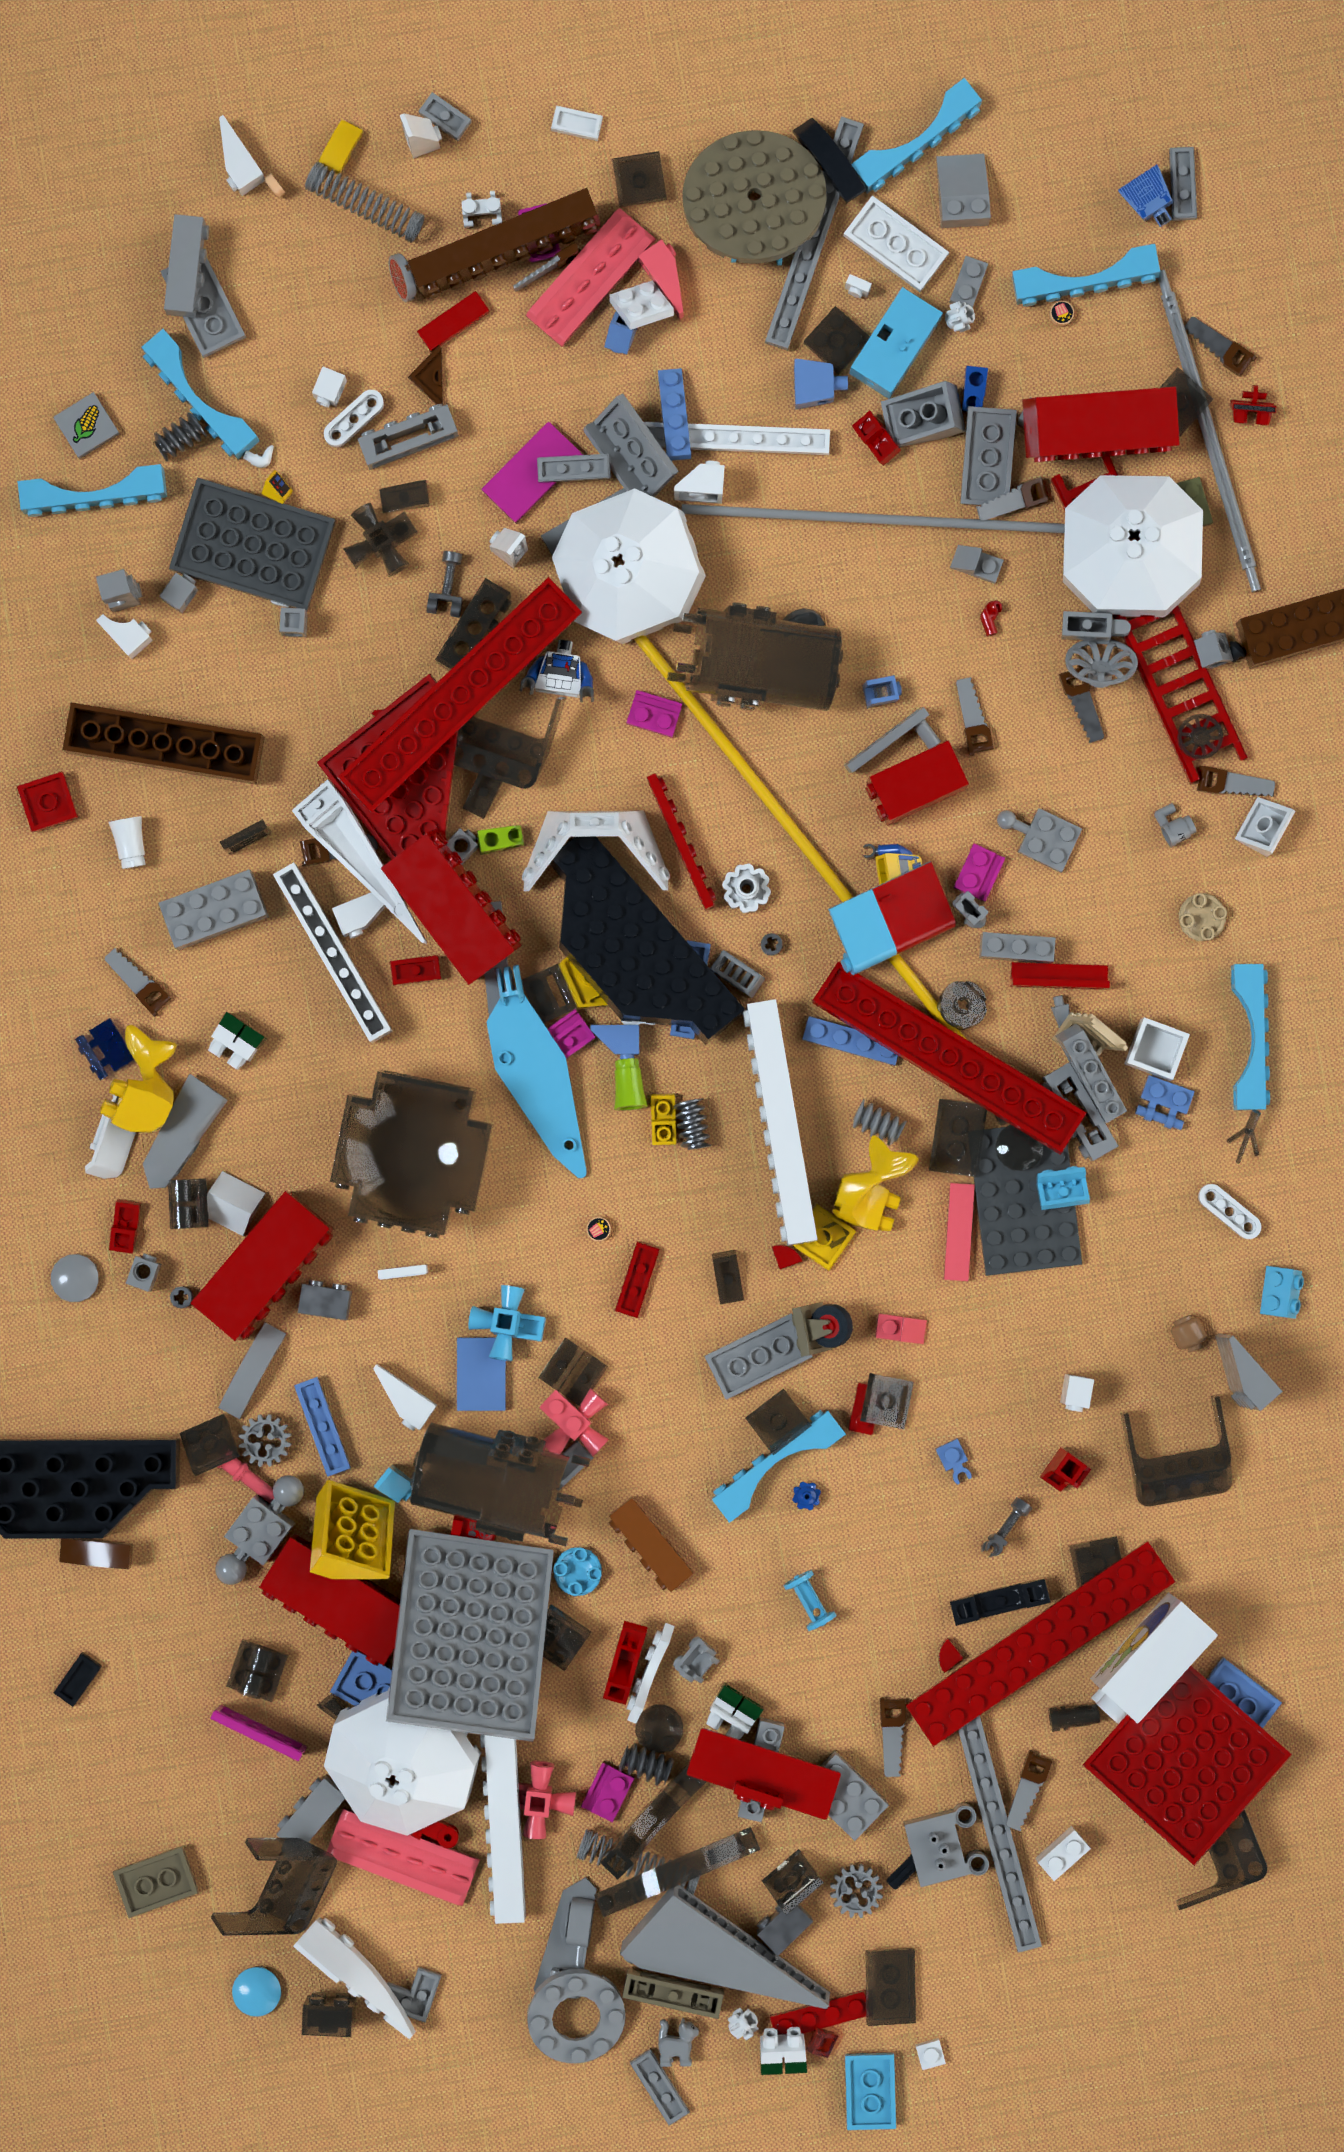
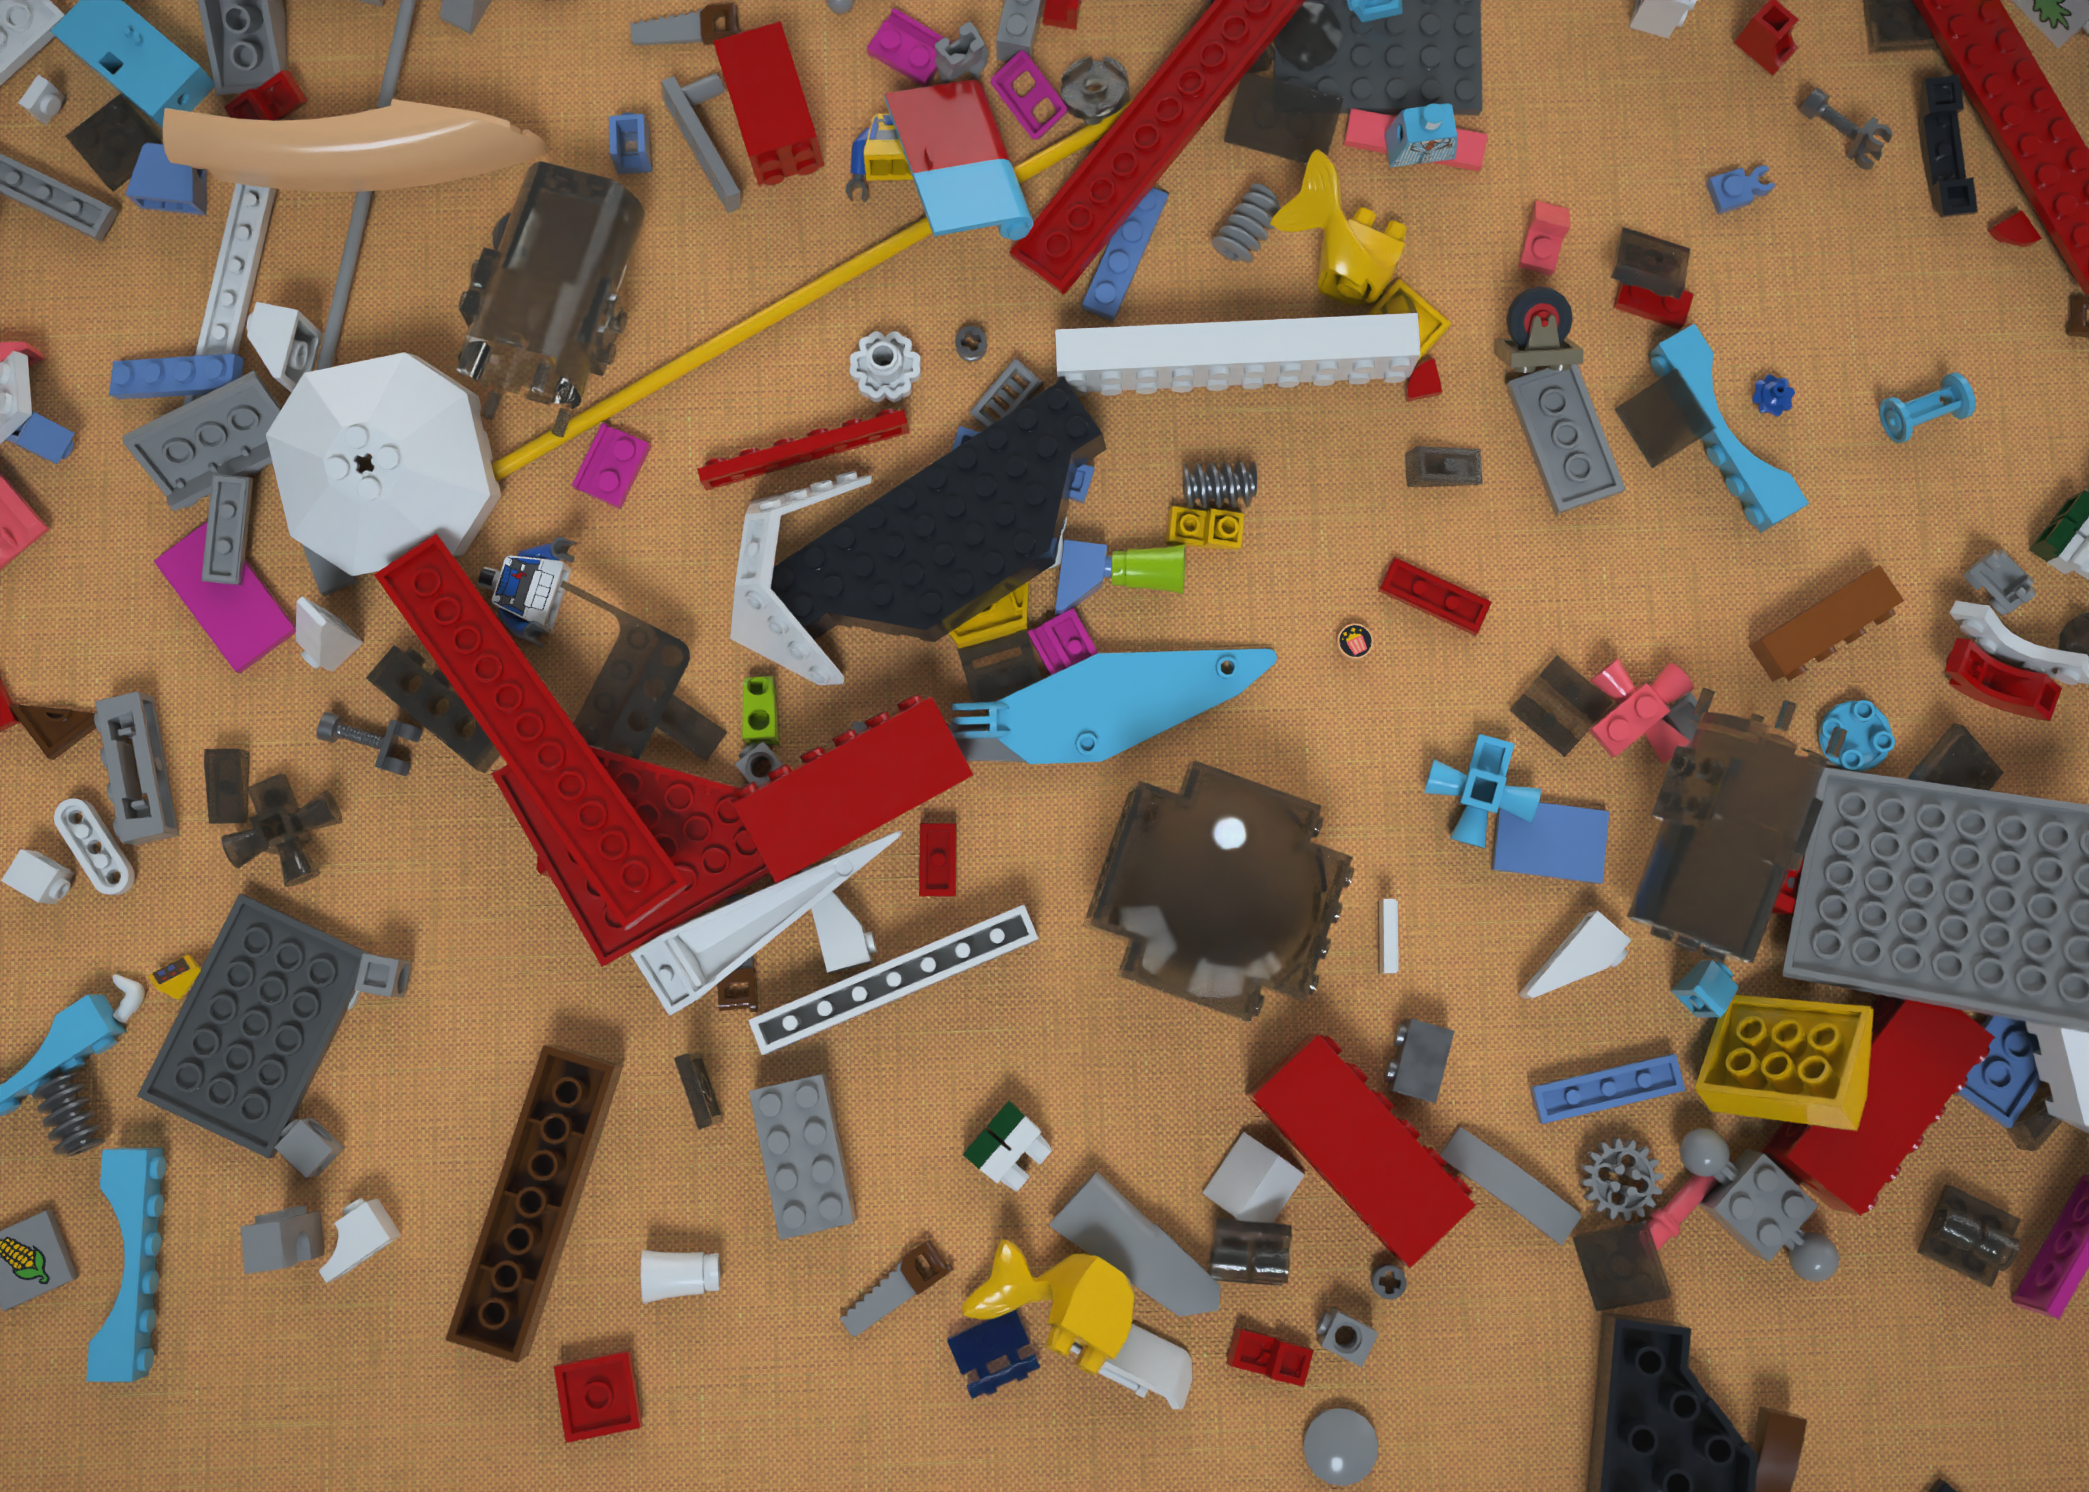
camera: 85 degrees left, 5 degrees down
(842, 522) = (352, 152): none -> light nougat slope
(946, 956) = (1023, 107): none -> dark pink piece
(954, 1234) = (1426, 135): none -> medium azure torso

